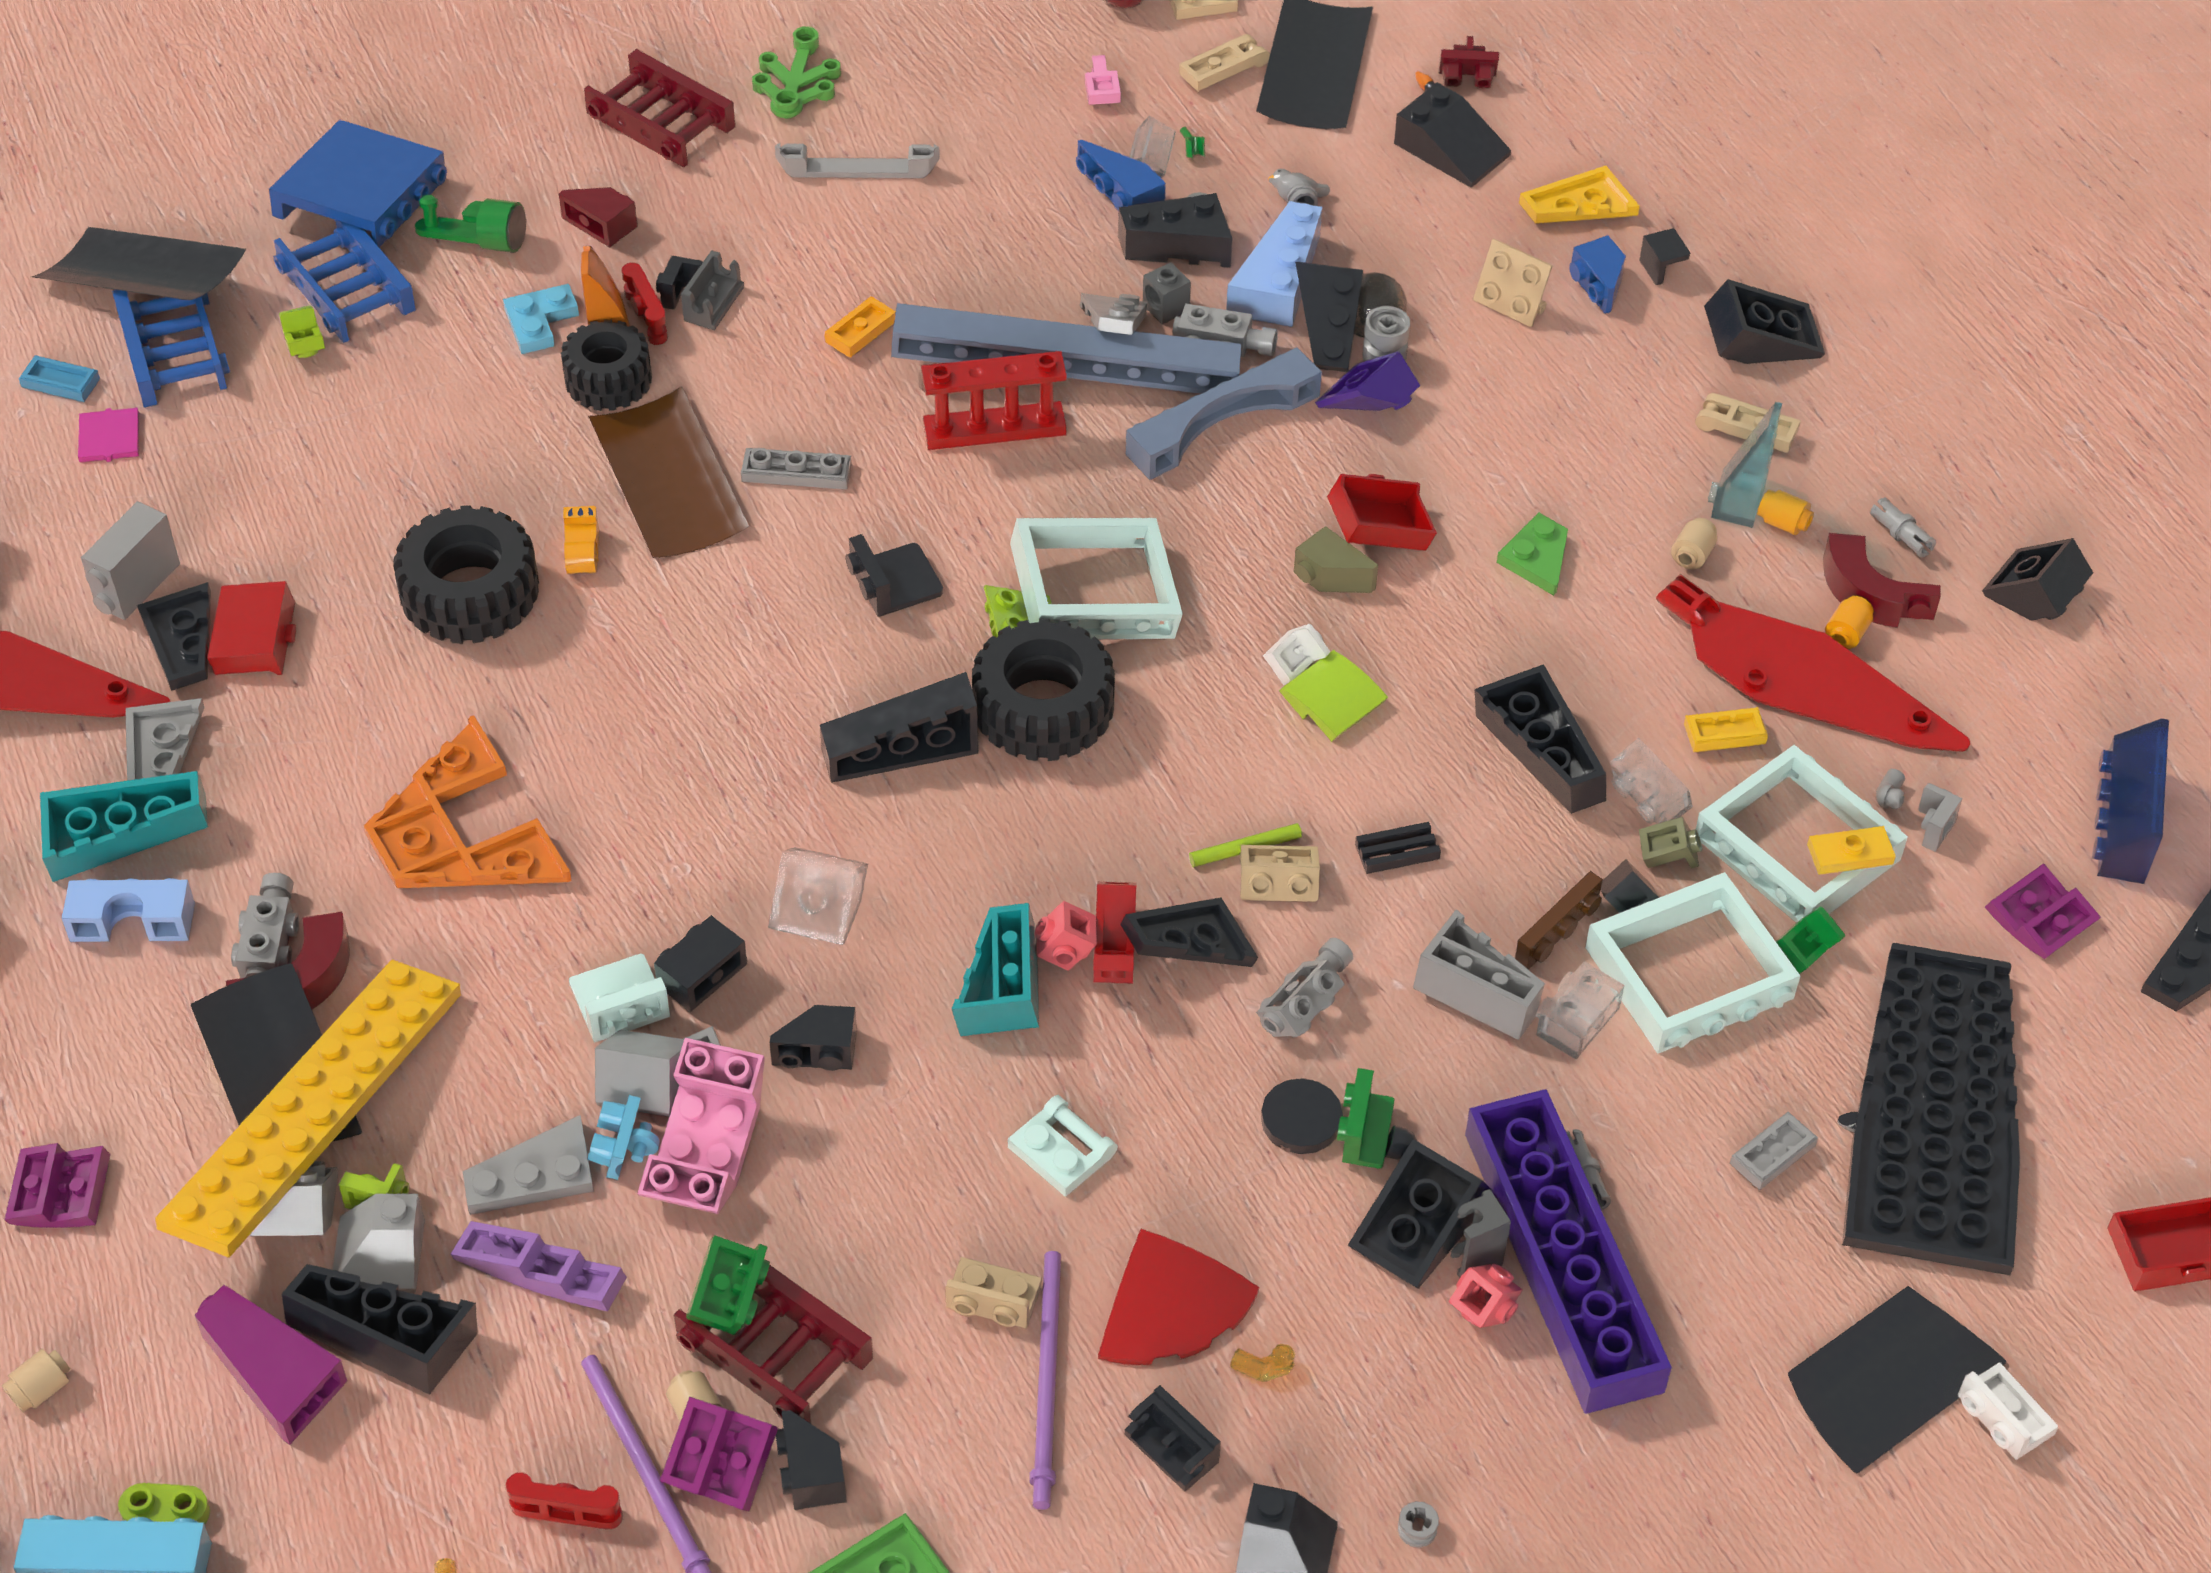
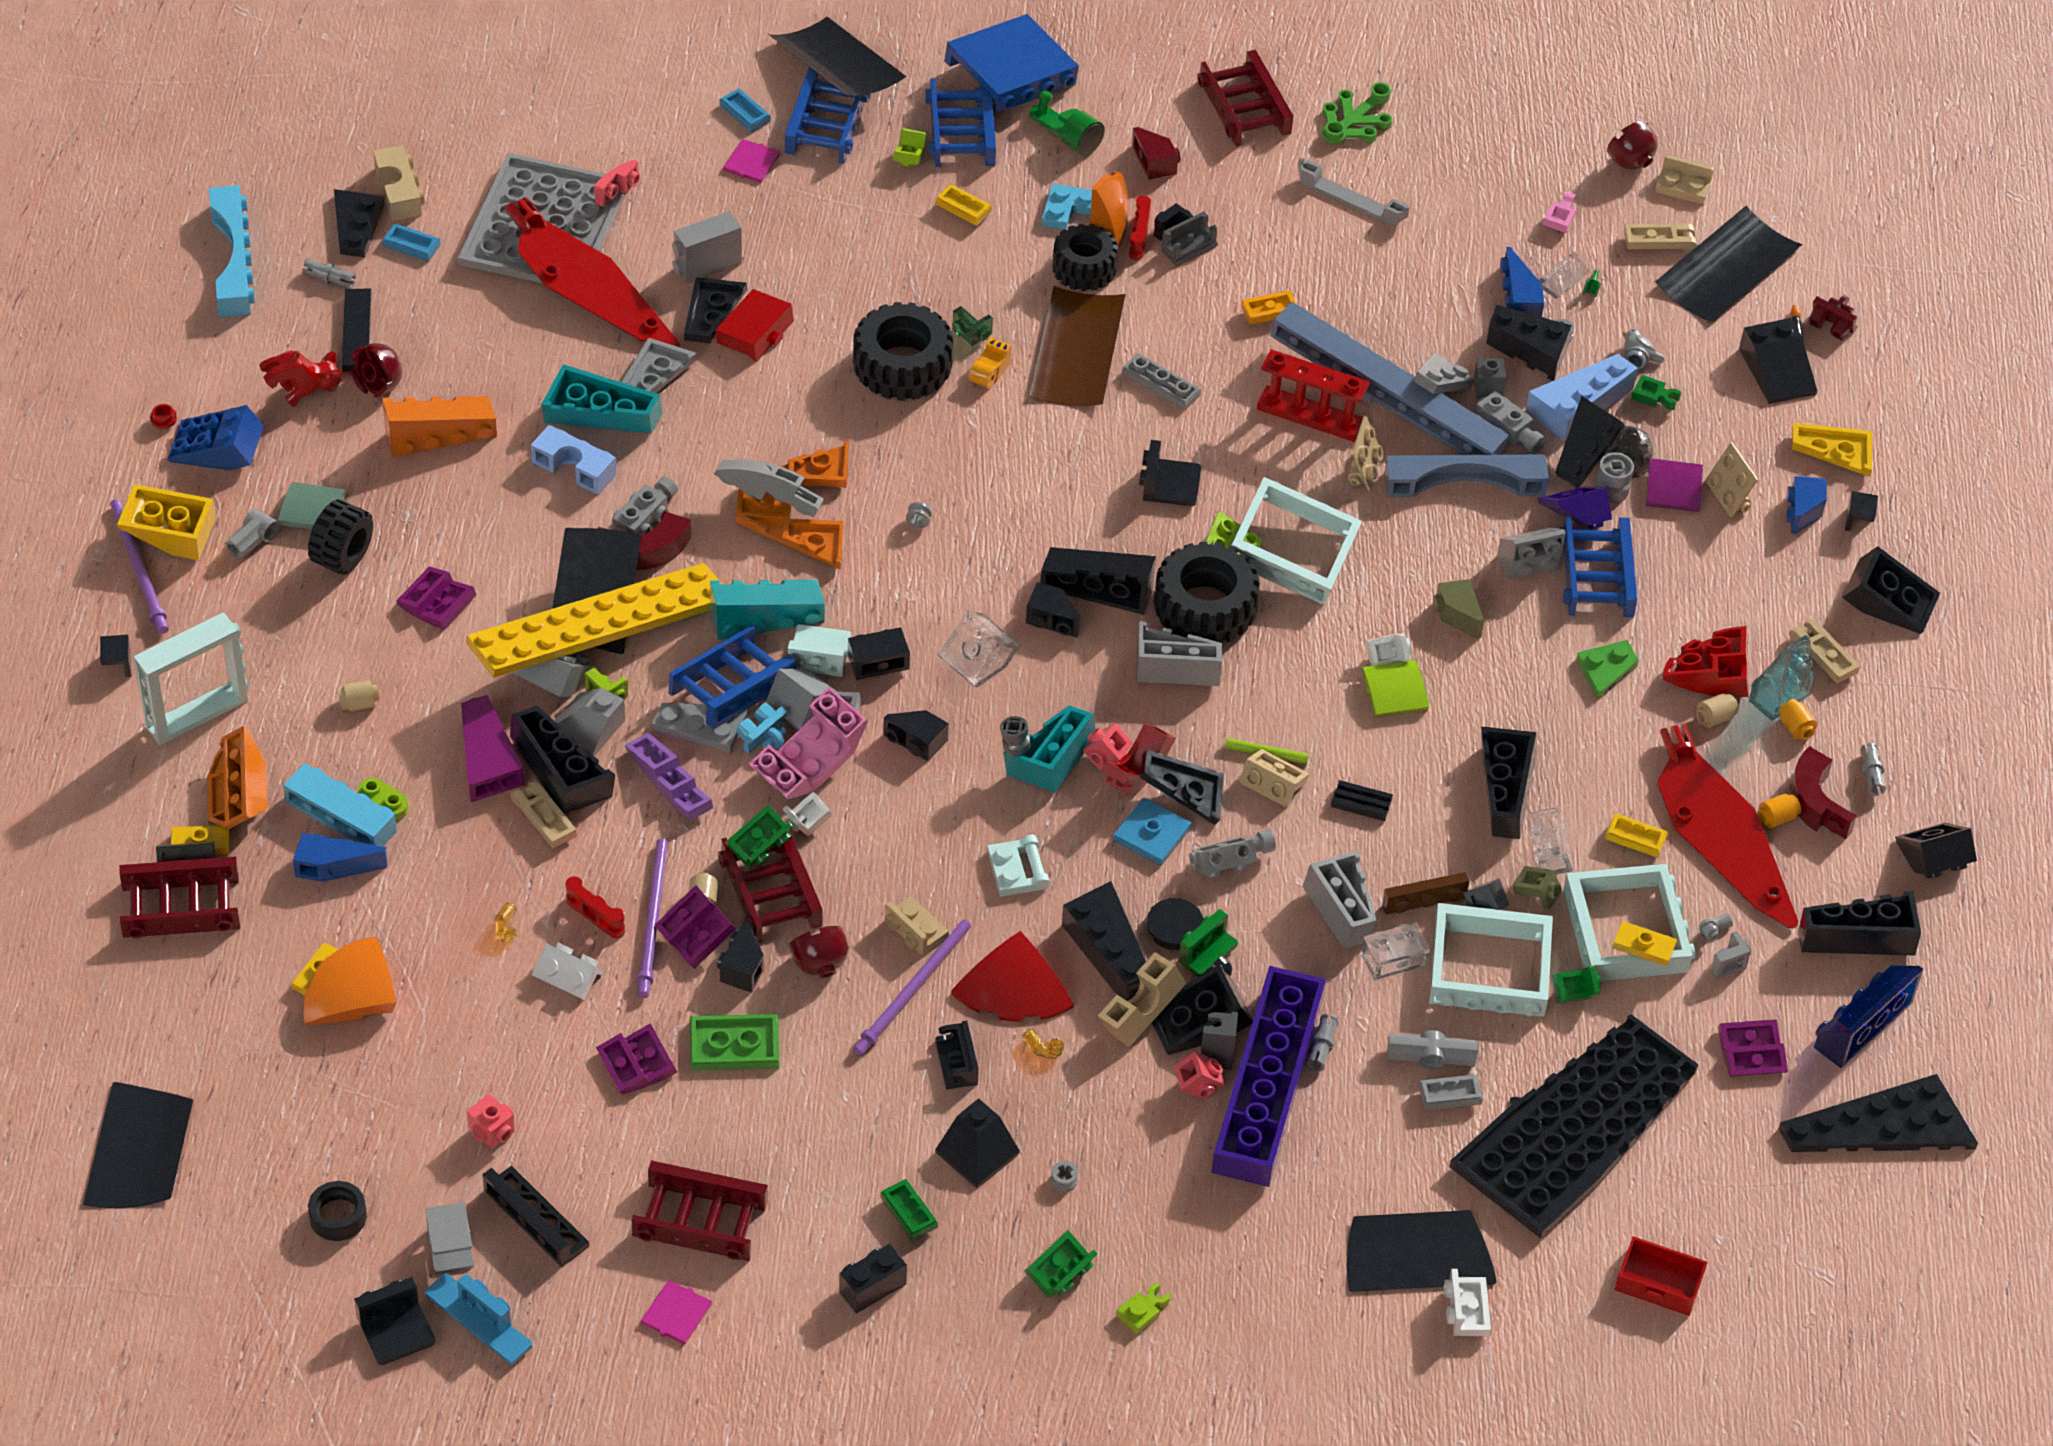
camera: 30 degrees right, 0 degrees up
(402, 813) = (761, 477): none -> light grey slope
(405, 1407) = (544, 814): none -> tan plate
(413, 370) = (963, 205): none -> yellow plate
(512, 978) = (764, 606): none -> teal wedge
(525, 508) = (969, 328): none -> clear green bracket
(562, 1110) = (736, 697): none -> blue fence
(624, 764) = (918, 514): none -> light grey bush
(757, 1219) = (808, 814): none -> white bracket
(874, 801) = (1052, 610): none -> black slope
(908, 1397) = (820, 952): none -> dark red cylinder
(958, 979) = (1015, 735): none -> flat silver wheel
(1064, 786) = (1177, 659): none -> light grey wedge
(1097, 447) = (1365, 457): none -> tan hinge
(1188, 1014) = (1152, 831): none -> dark azure plate
(1249, 1183) = (1106, 938): none -> black wedge
(1348, 230) = (1653, 391): none -> green plate
(1357, 1210) = (1158, 986): none -> tan arch
(1368, 452) = (1531, 552): none -> light grey slope
(1381, 512) = (1515, 588): red container -> none
(1450, 318) = (1674, 485): none -> magenta slope
(1460, 420) = (1621, 556): none -> blue fence
(1651, 493) = (1713, 665): none -> red brick
(1713, 1109) = (1432, 1049): none -> light grey piece
(2047, 707) = (1862, 927): none -> black wedge

